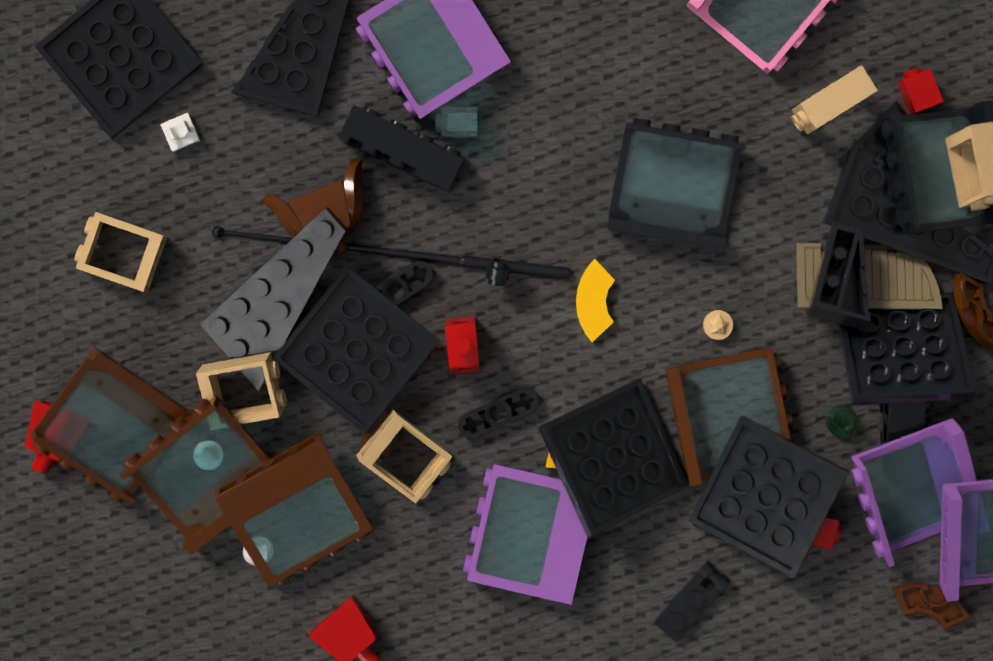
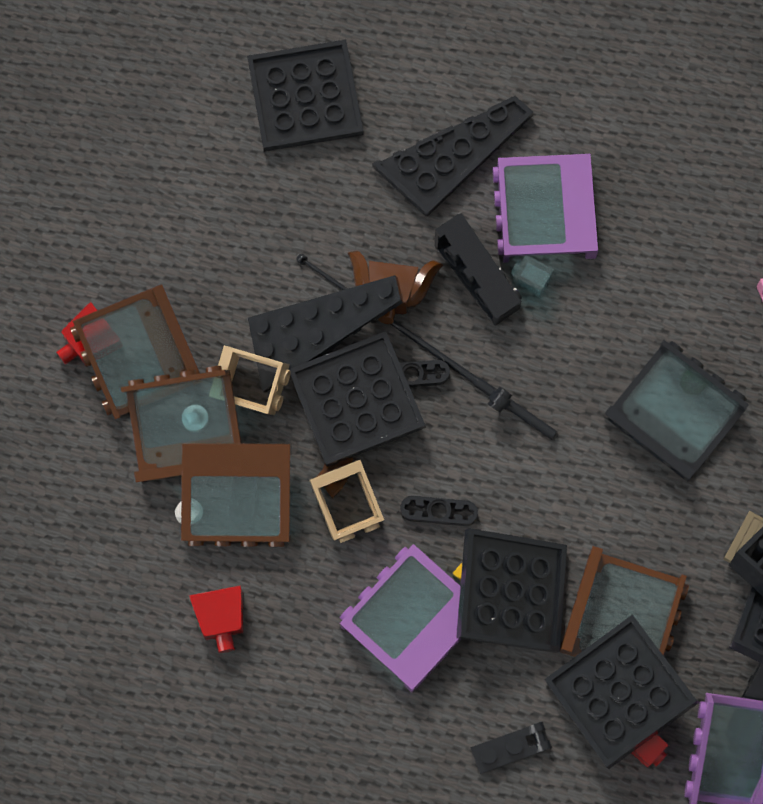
camera: 30 degrees right, 15 degrees down
(149, 261) = (237, 250): tan window -> none
(180, 132) = (317, 173): white tile -> none
(462, 345) = (440, 442): red torso -> none
(591, 300) = (561, 465): yellow tile -> none
(717, 325) = (651, 539): tan tile -> none
(841, 421) = (712, 669): clear green tile -> none

